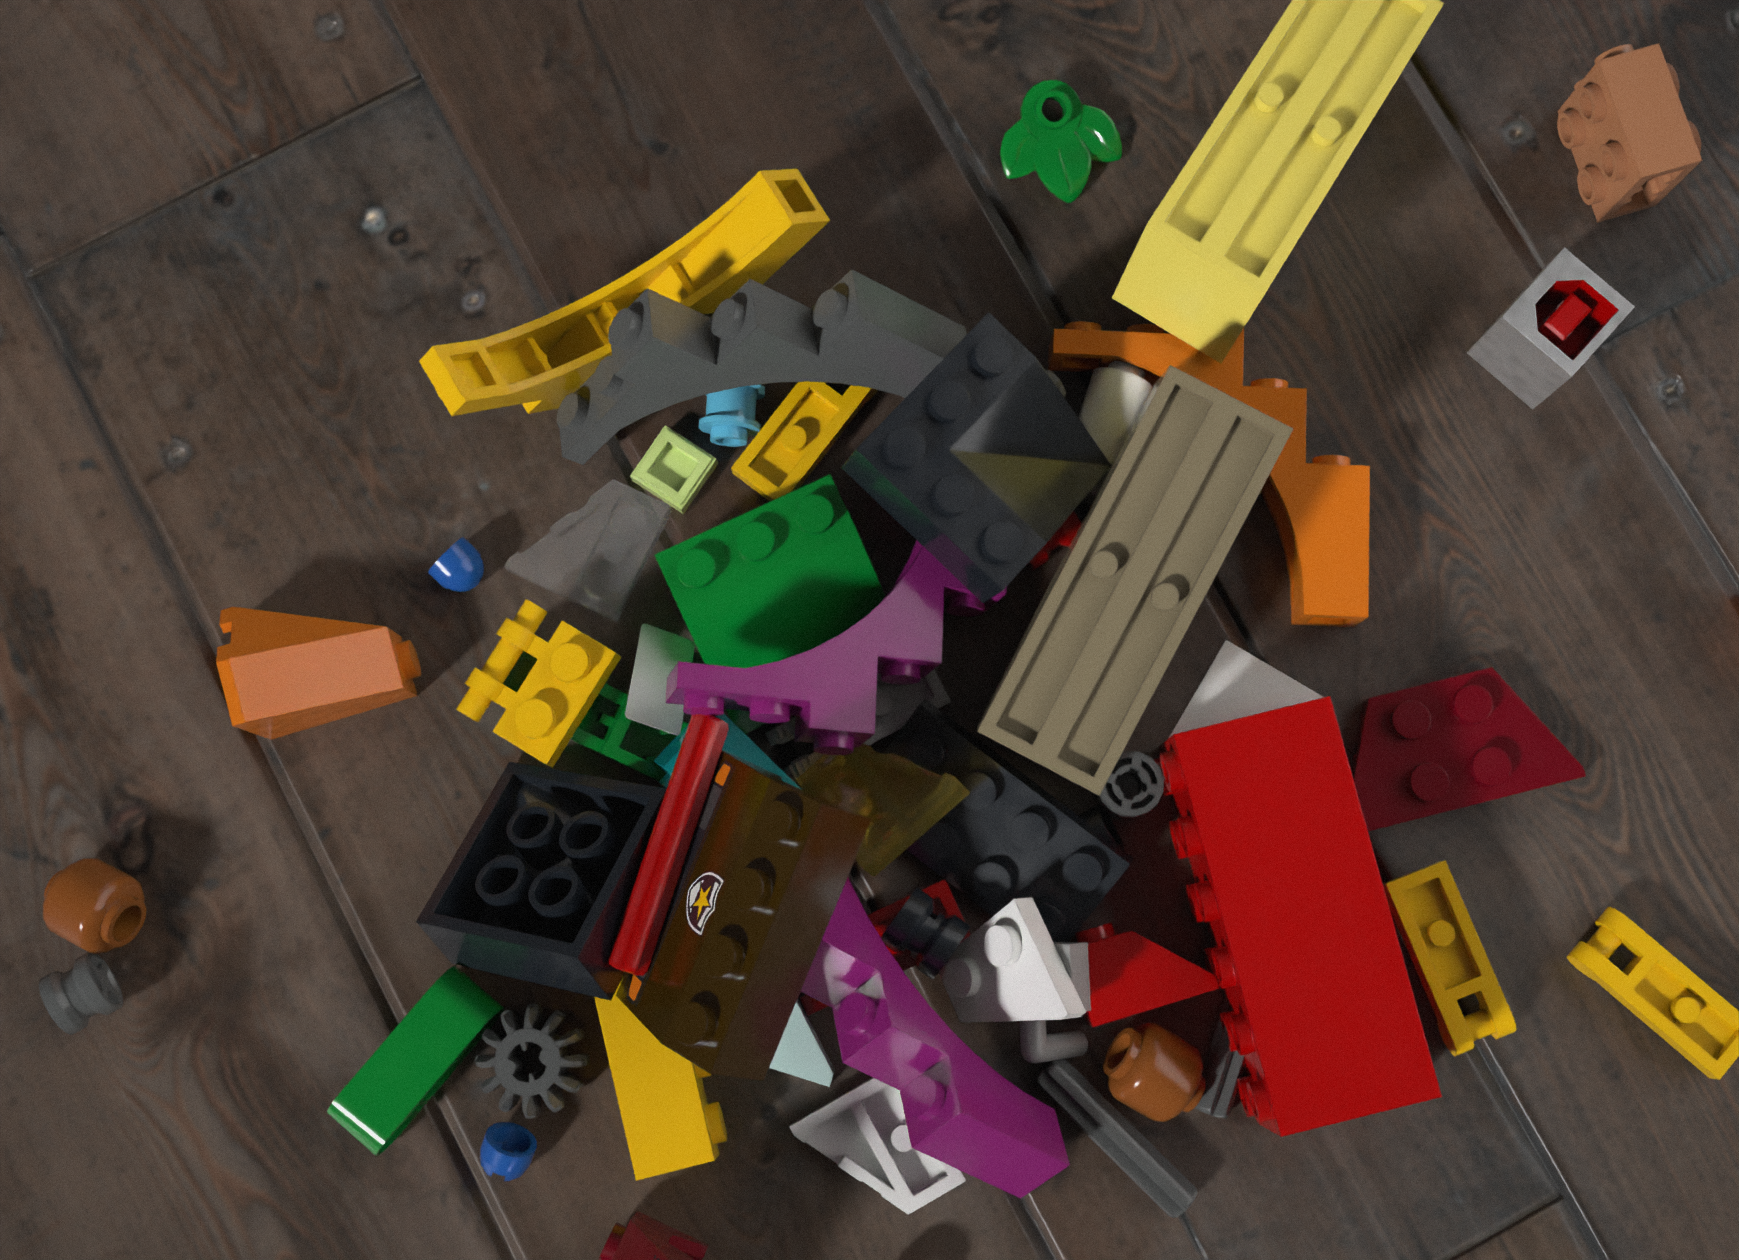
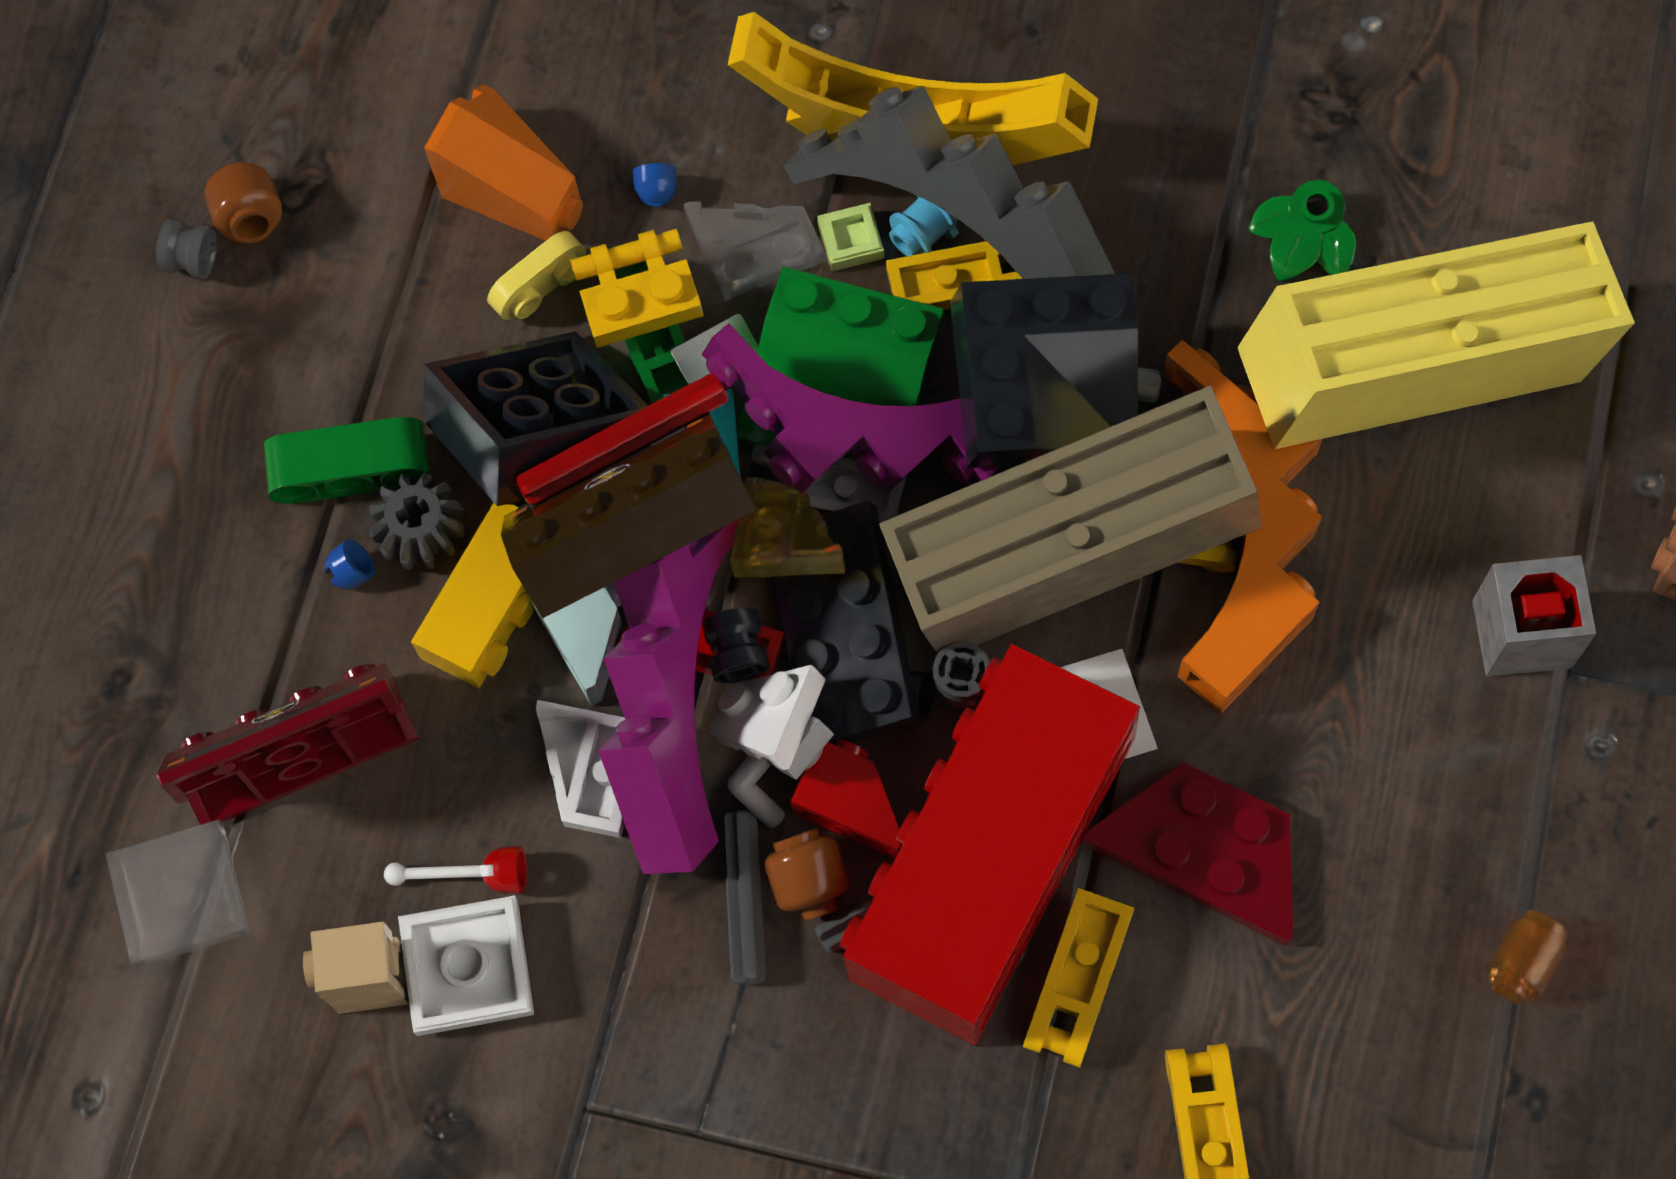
camera: 45 degrees right, 10 degrees down
(429, 768) = (525, 284): none -> light yellow plate

